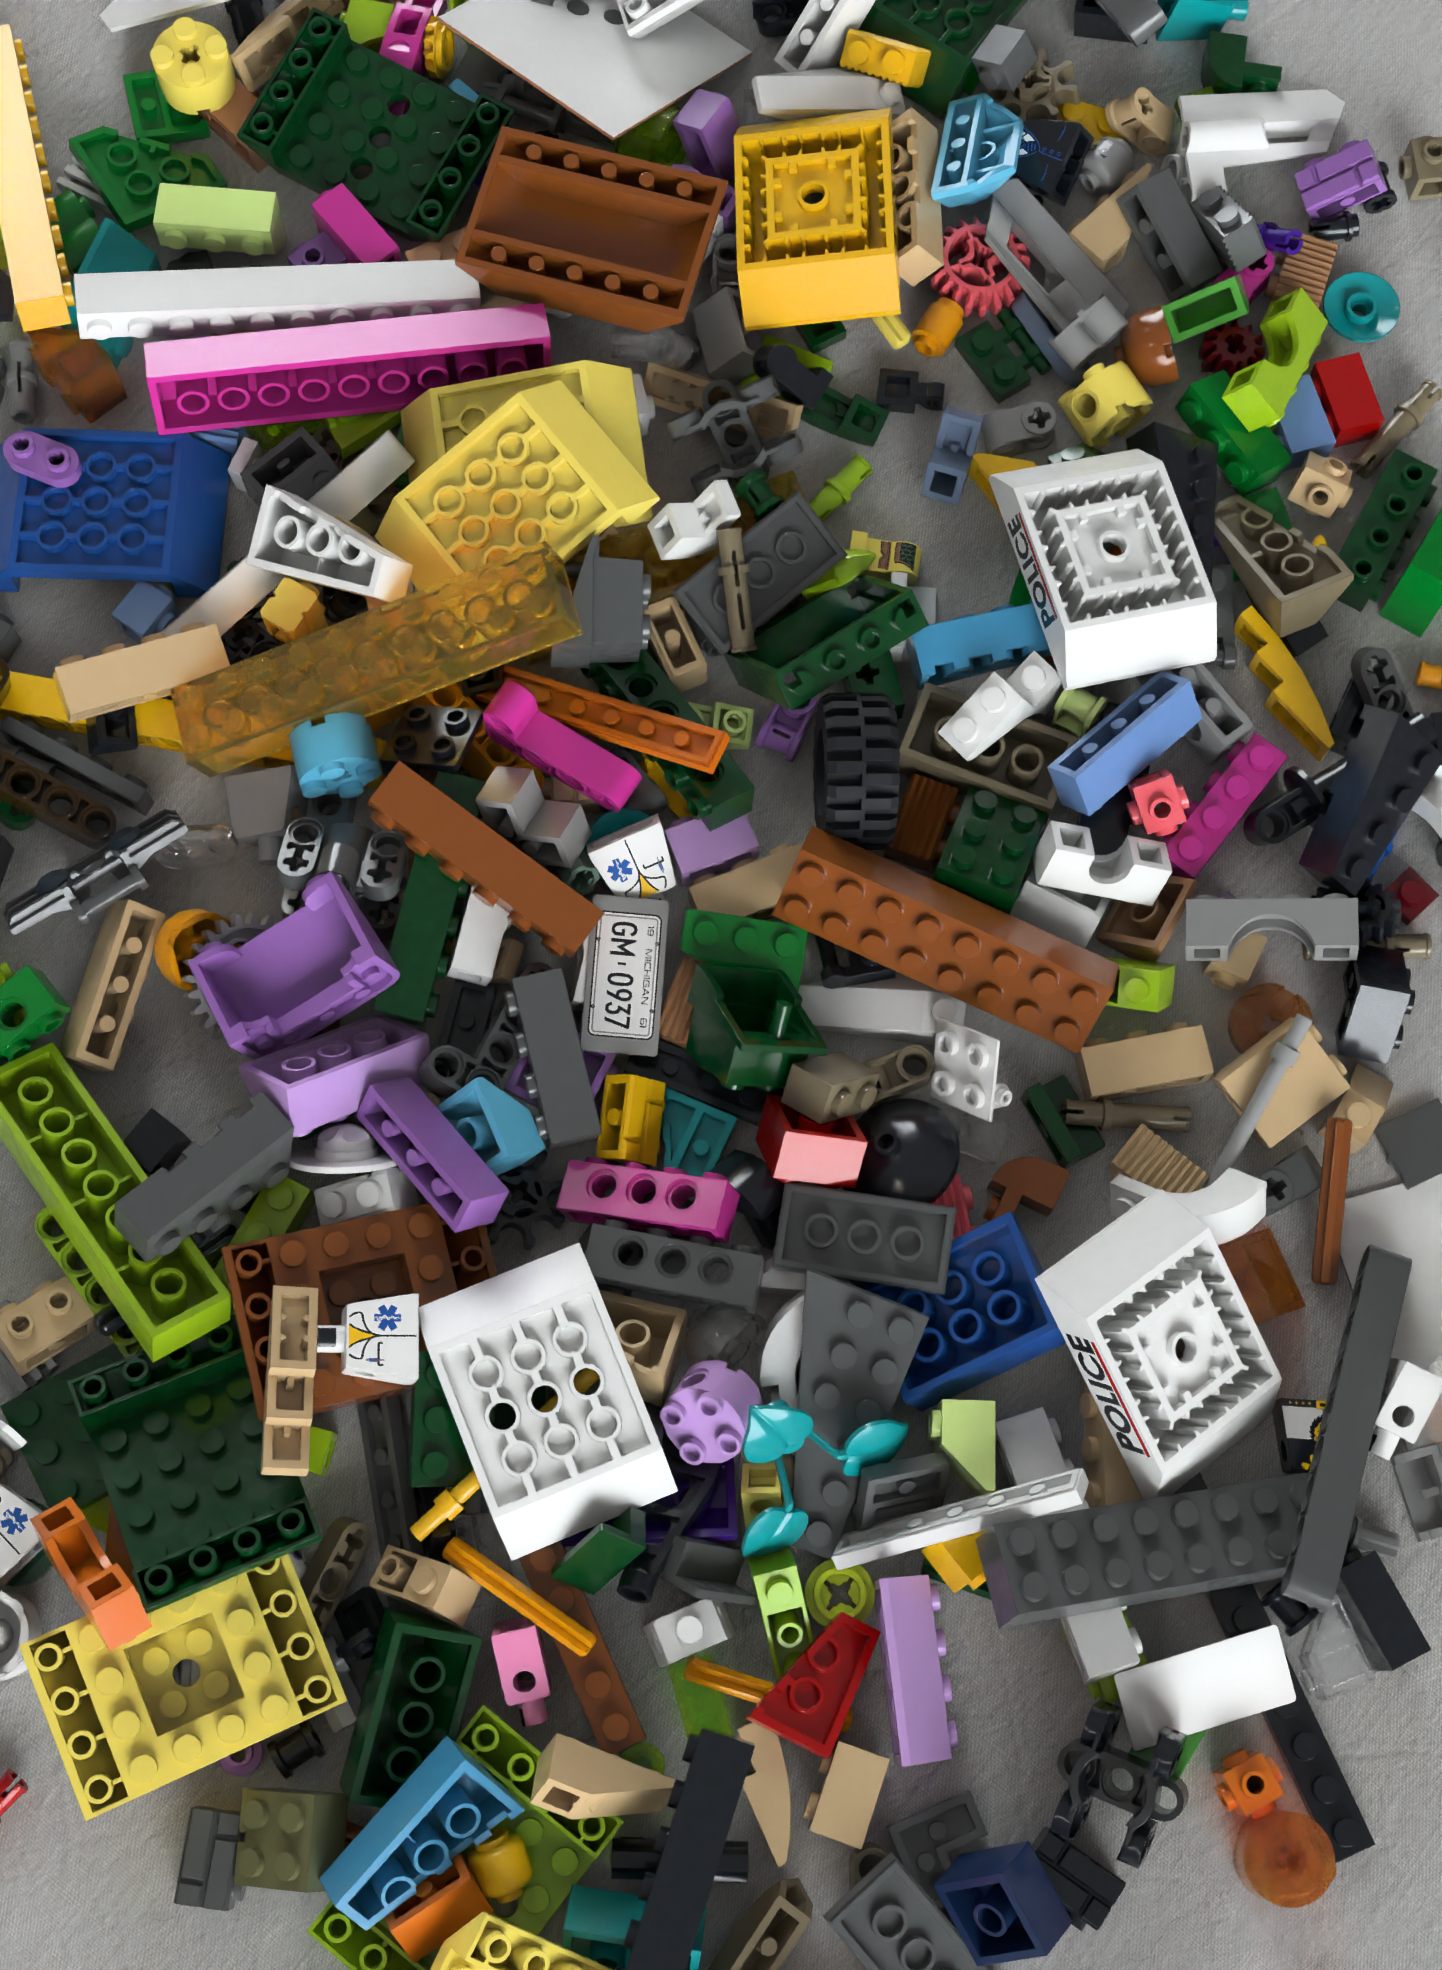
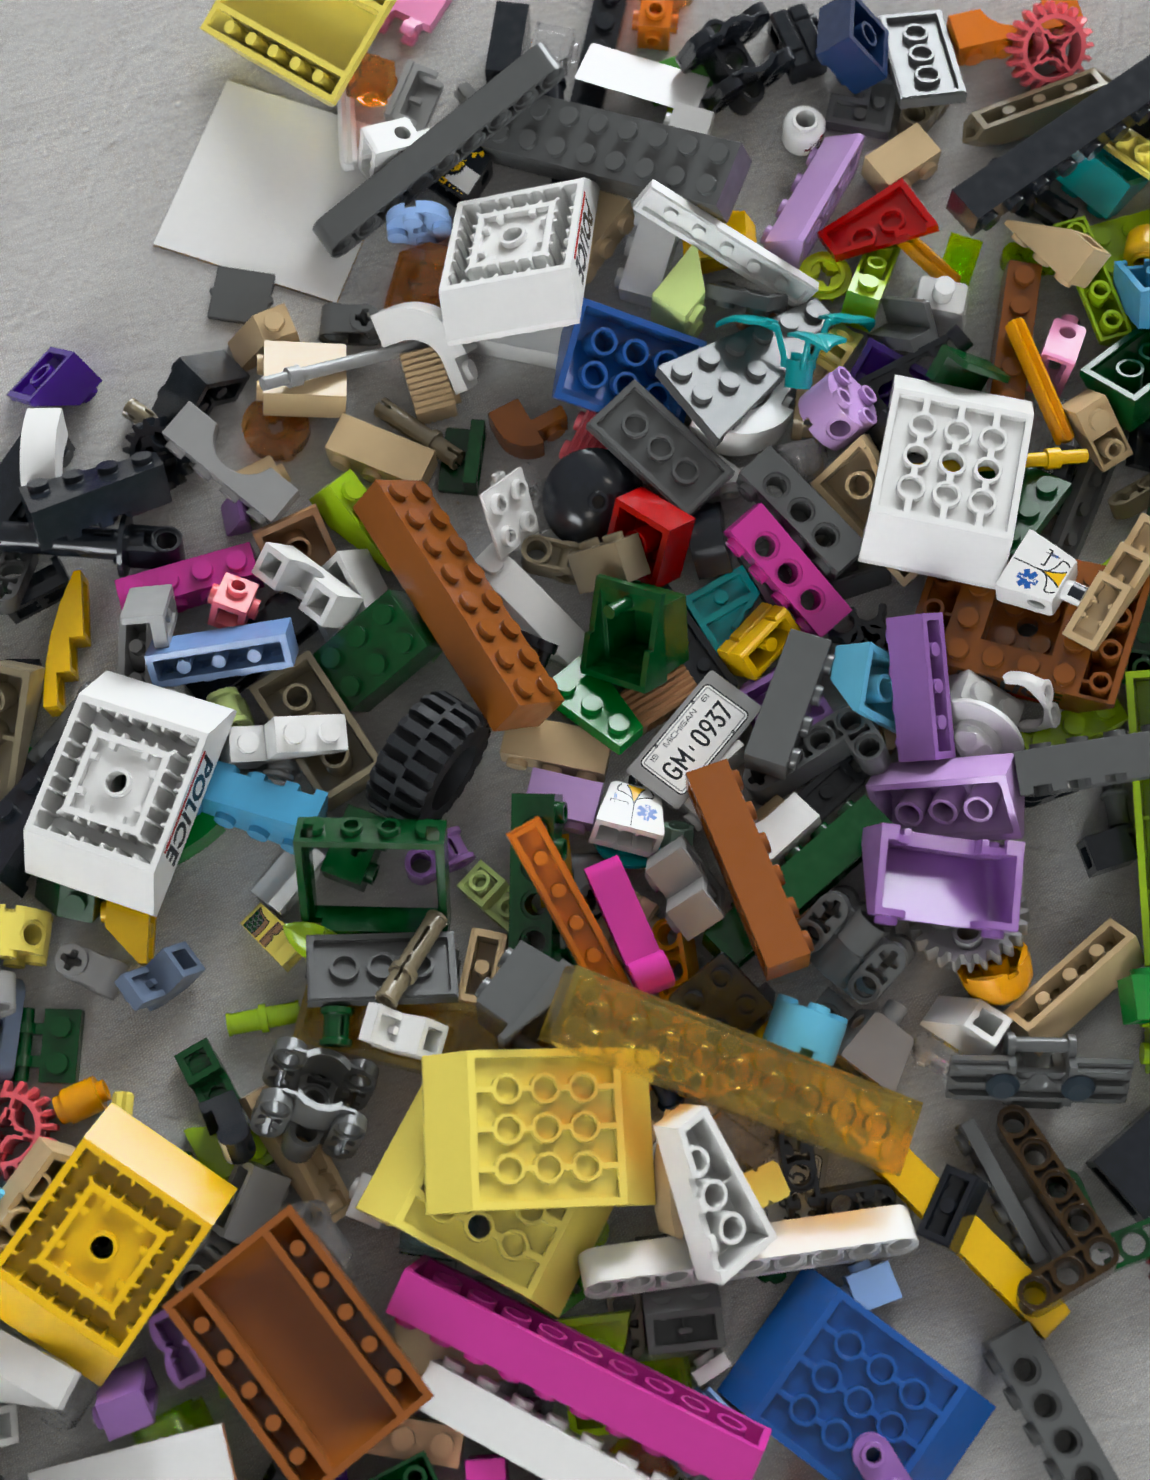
camera: 140 degrees left, 0 degrees up
(138, 672) = (913, 1207): tan brick -> none
(195, 886) = (966, 1024): none -> white slope
(285, 1214) = (1037, 687): none -> white cap
(769, 1789) = (955, 174): tan slope -> none
(901, 392) = (150, 1066): black plate -> none
(922, 821) = (382, 717): dark orange brick -> none
(984, 1756) = (803, 130): none -> white head
(1221, 734) = (152, 606): none -> light grey panel
(1293, 1341) = (418, 224): none -> light blue plate
(1331, 1200) = (333, 289): dark orange axle -> none
(1413, 893) = (109, 446): dark red plate -> none

